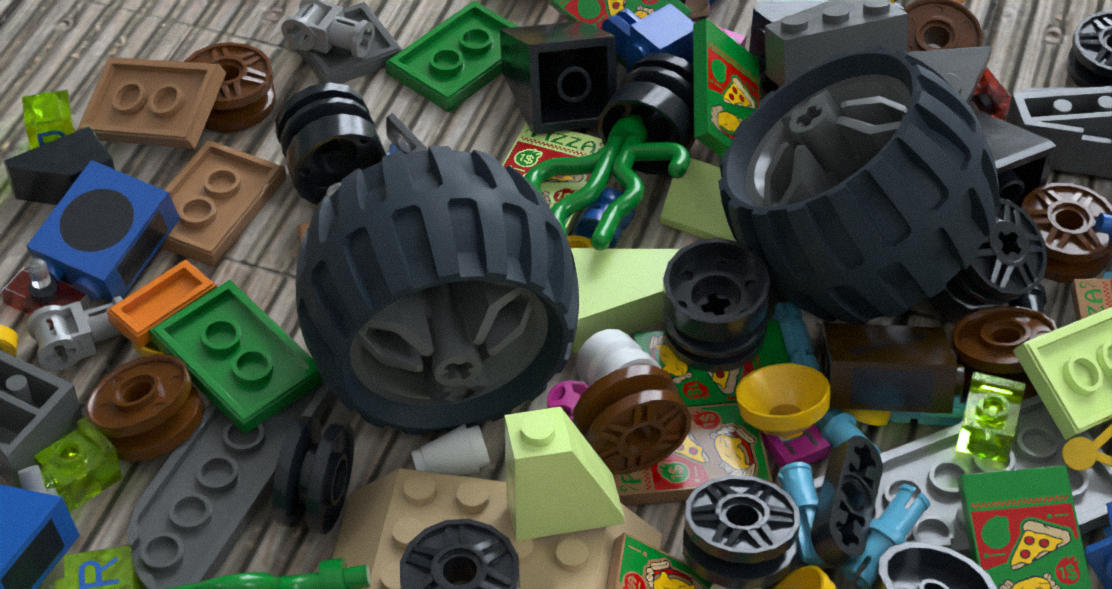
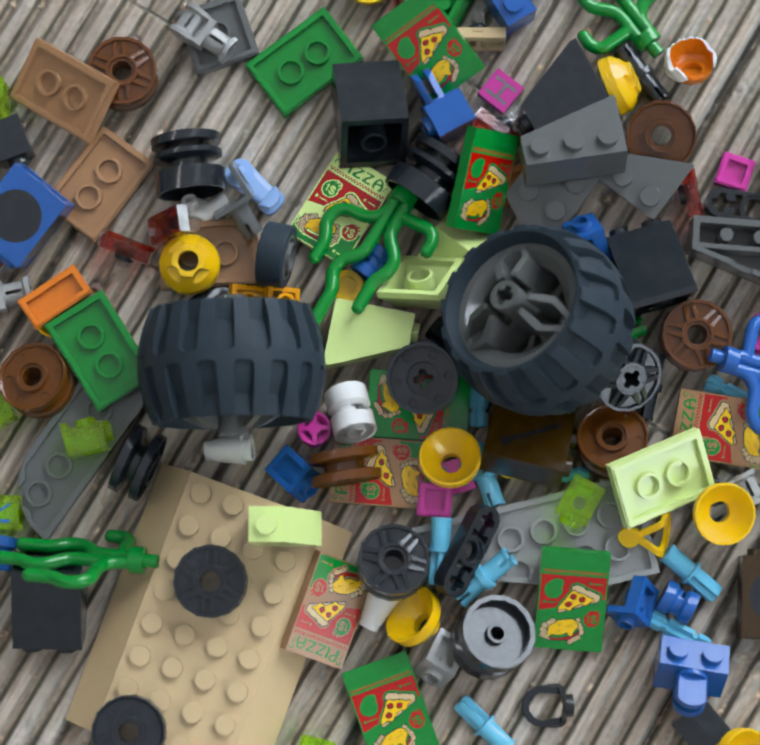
camera: 10 degrees right, 35 degrees up
(230, 454) = (87, 437): none -> clear neon green brick
(258, 257) = (127, 251): none -> clear red piece
(323, 182) = (171, 224): none -> clear red piece
(680, 223) = (419, 282): none -> yellowish green slope
(769, 455) = (434, 500): none -> dark pink tile
(1037, 75) = (734, 172): none -> dark pink tile

